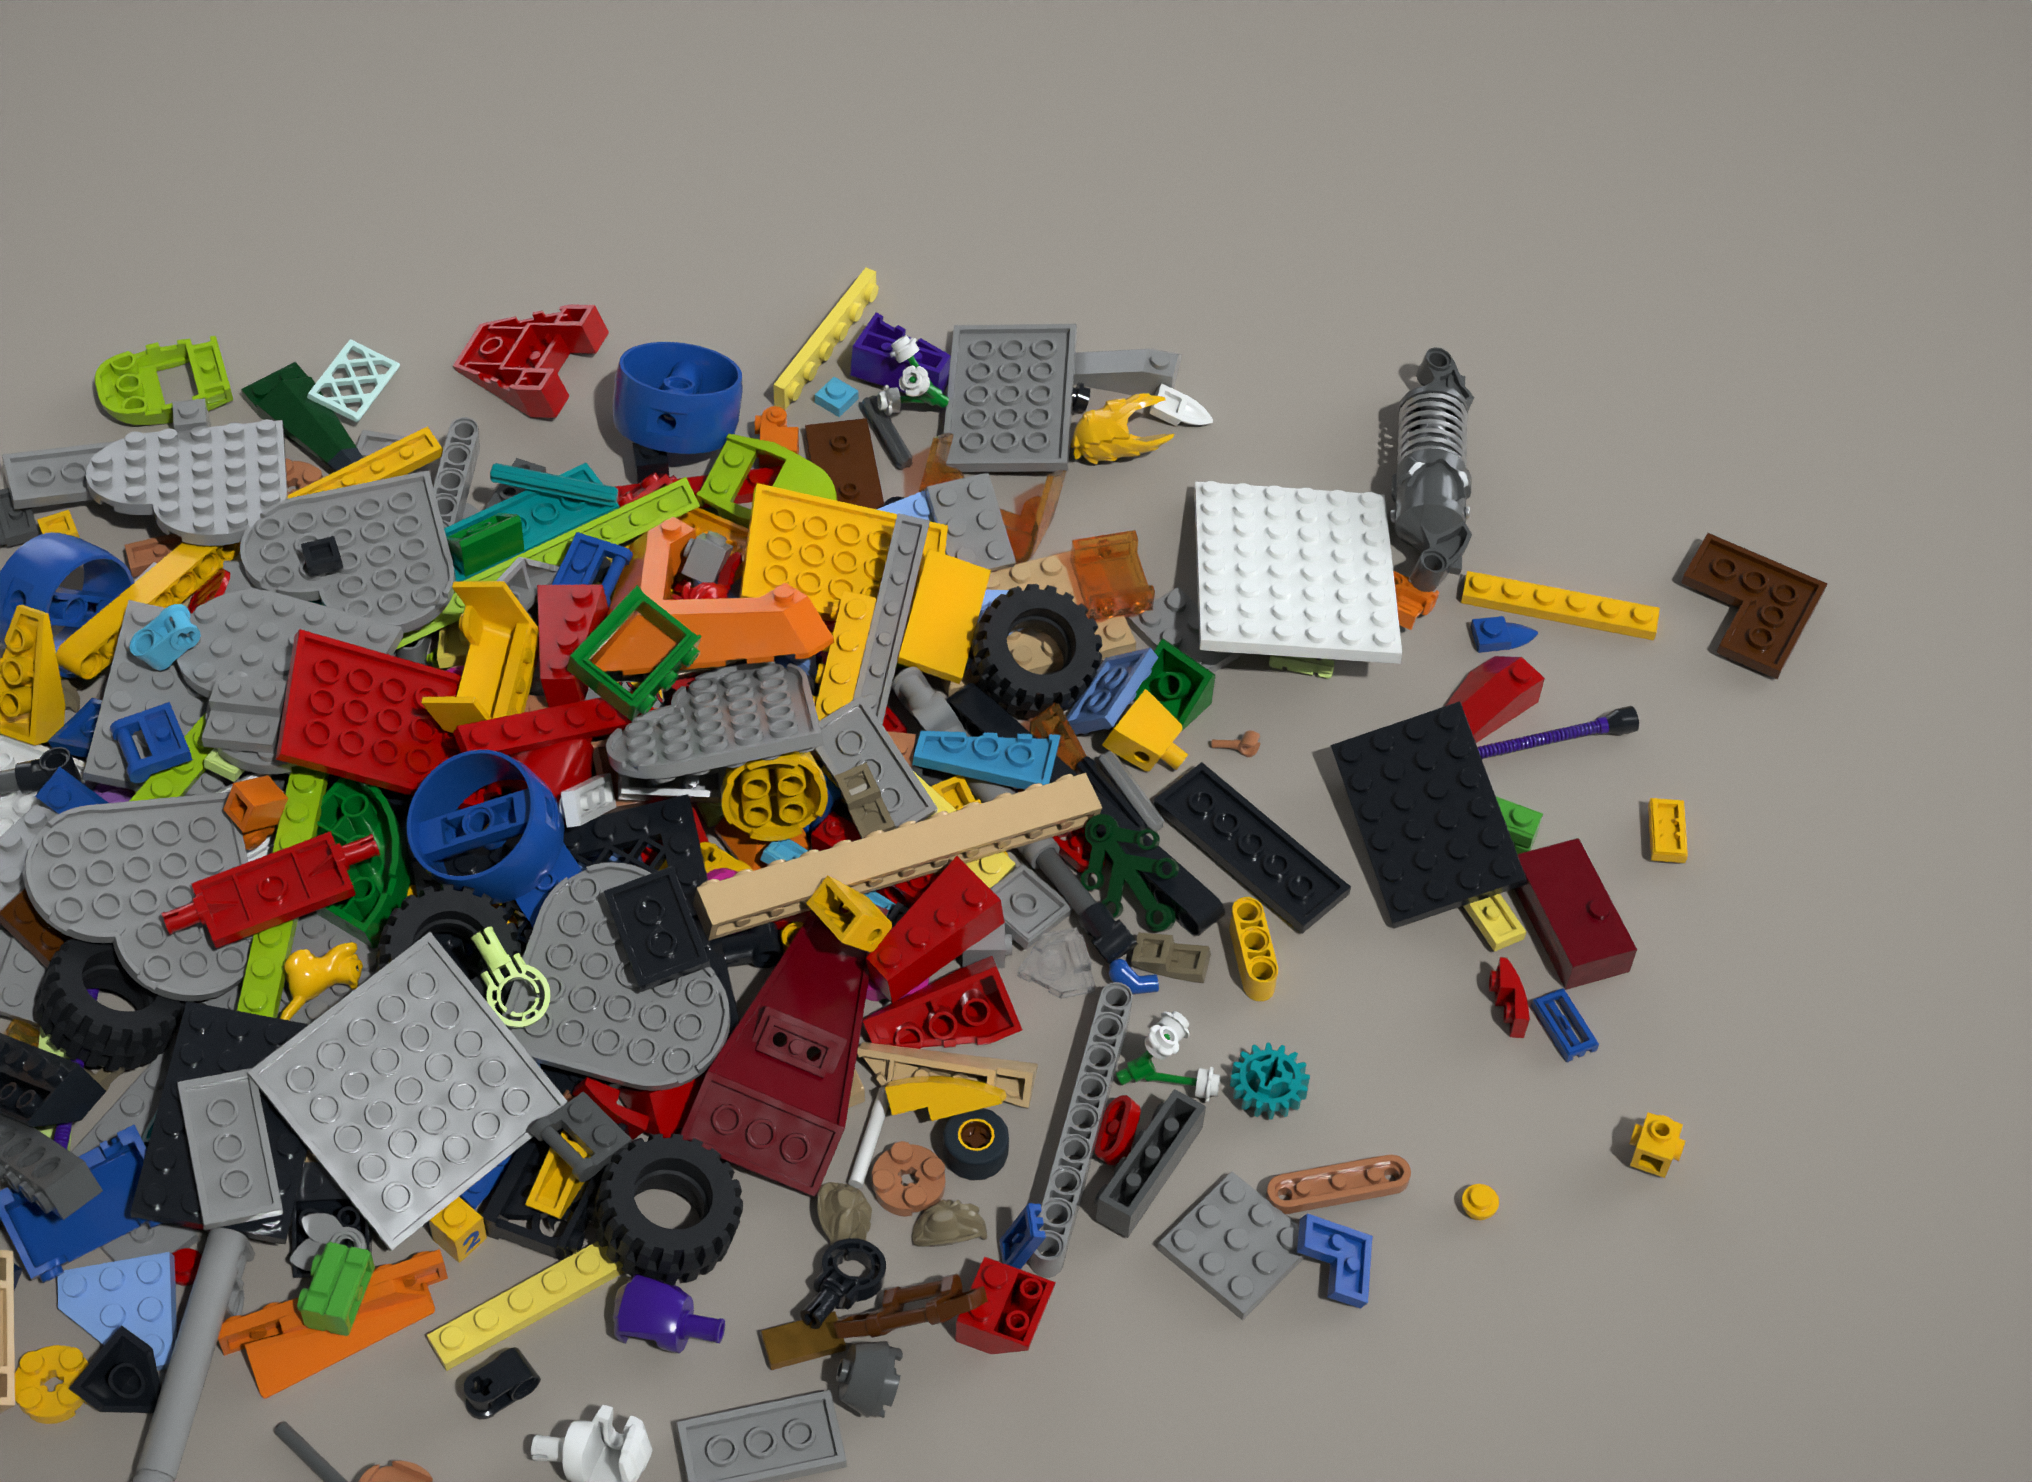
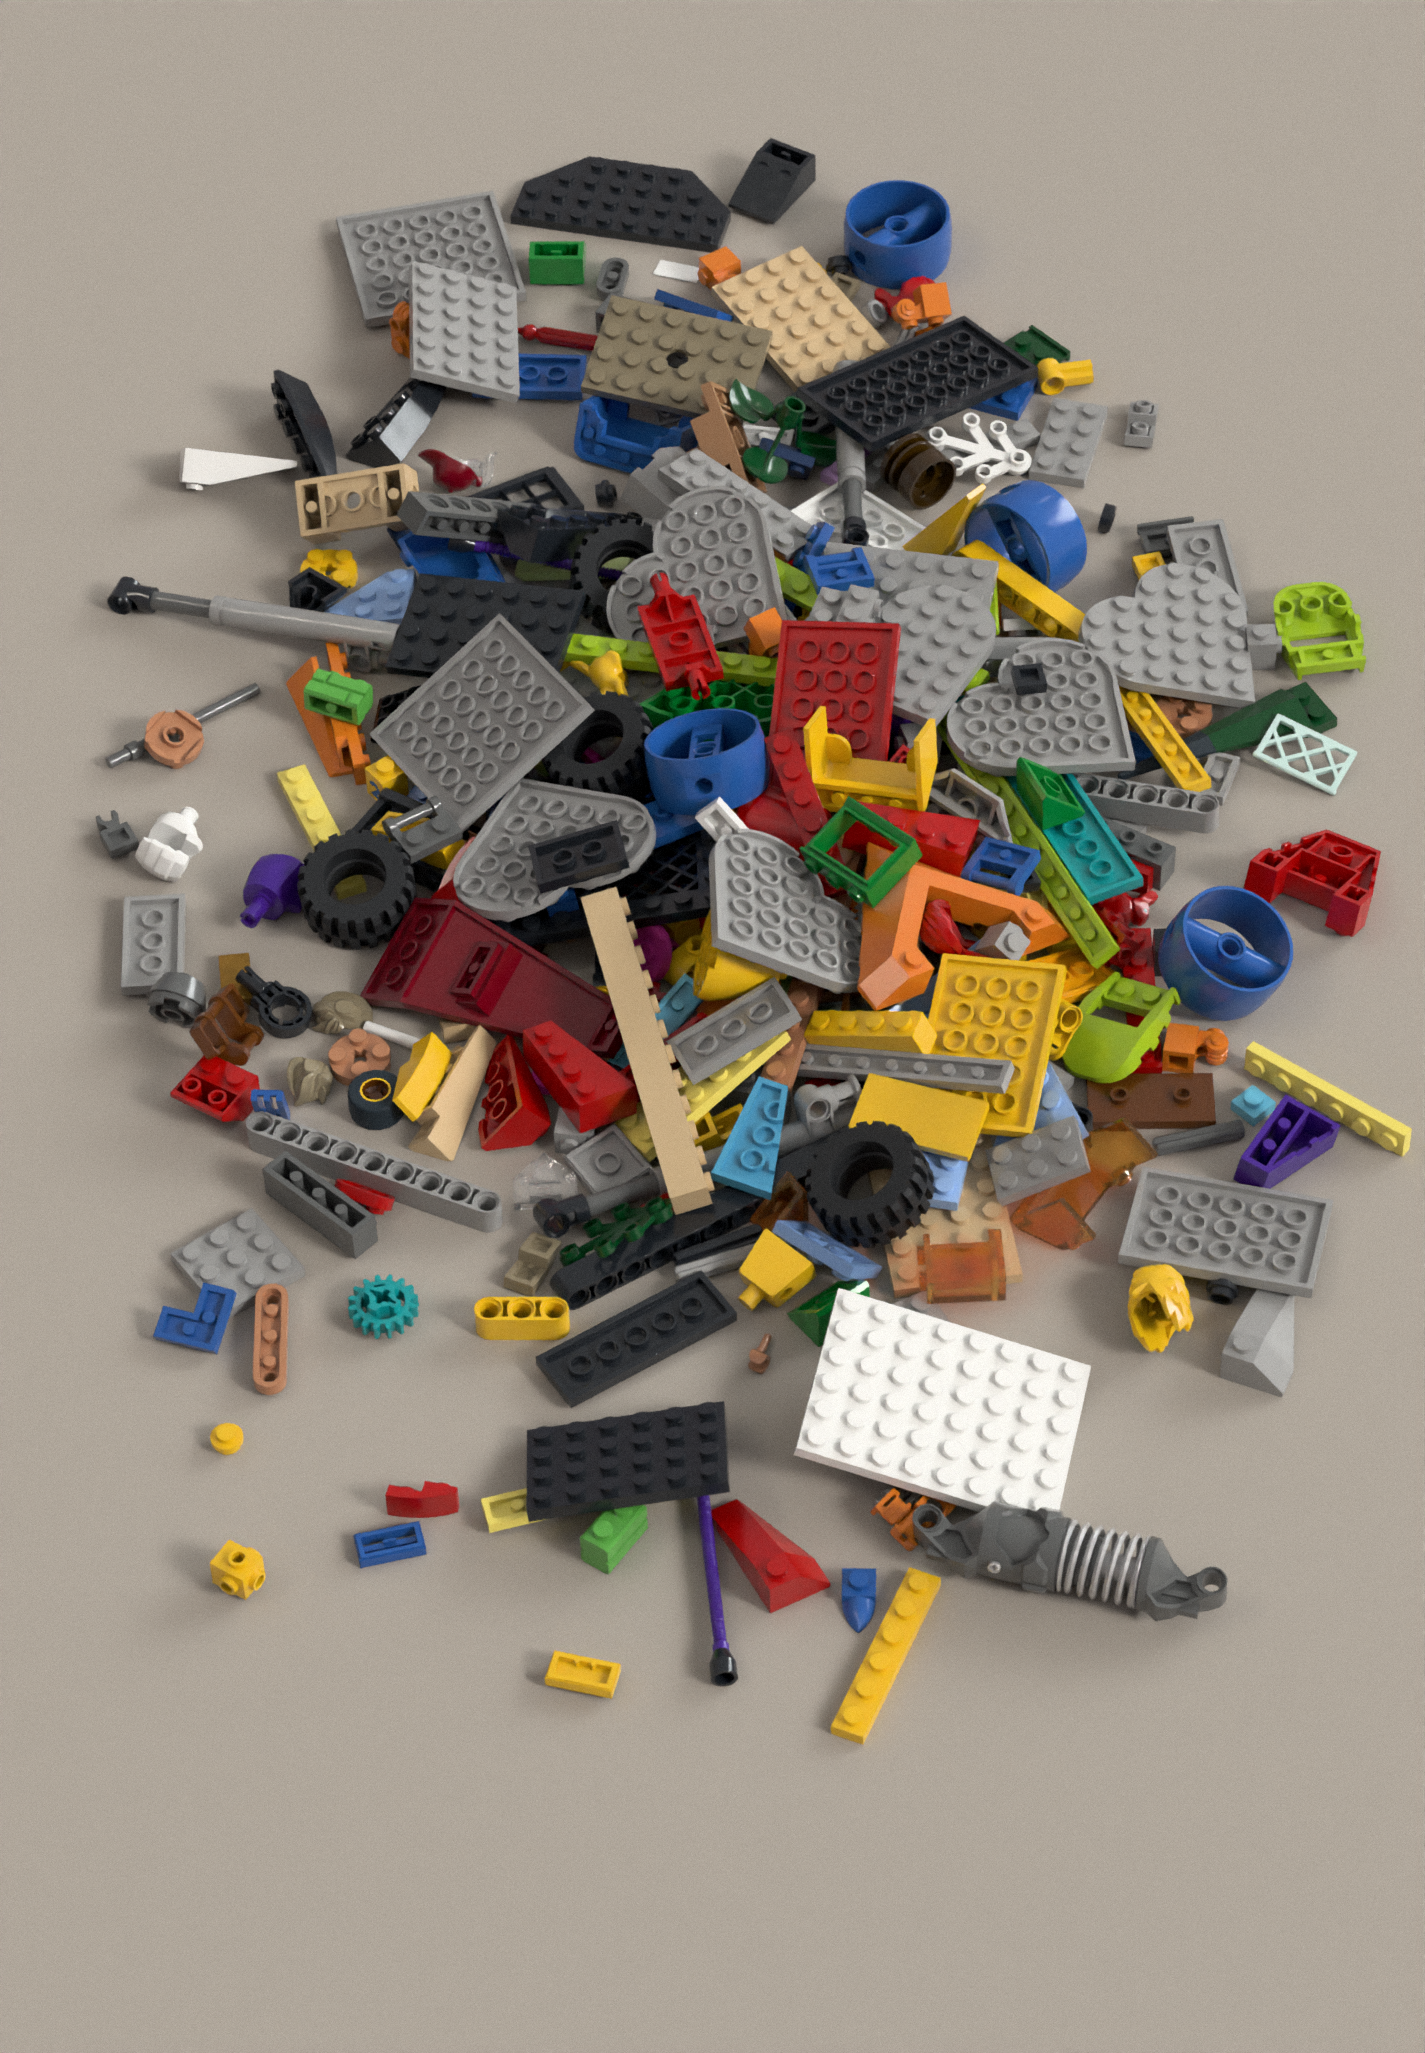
camera: 105 degrees right, 5 degrees down
(165, 640) = (936, 569): medium azure piece -> none
(210, 589) = (1018, 629): red window -> none
(229, 1149) = (447, 616): light grey plate -> none
(321, 1230) = (386, 703): light grey plate -> none
(496, 959) = (562, 768): yellowish green pin -> none
(500, 1384) = (250, 799): black piece -> none
(554, 484) = (1111, 848): teal axle -> none
(861, 926) = (578, 1000): yellow torso -> none
(864, 800) = (707, 1018): dark tan slope -> none
(914, 381) = (1222, 1128): white plant -> none
(1121, 972) = (510, 1232): blue arm -> none
(1161, 1043) = (420, 1215): white plant -> none
(1179, 408) = (1198, 1372): white plate -> none
(1574, 915) = (500, 1566): dark red brick -> none
(1770, 599) = (859, 1845): reddish brown plate -> none

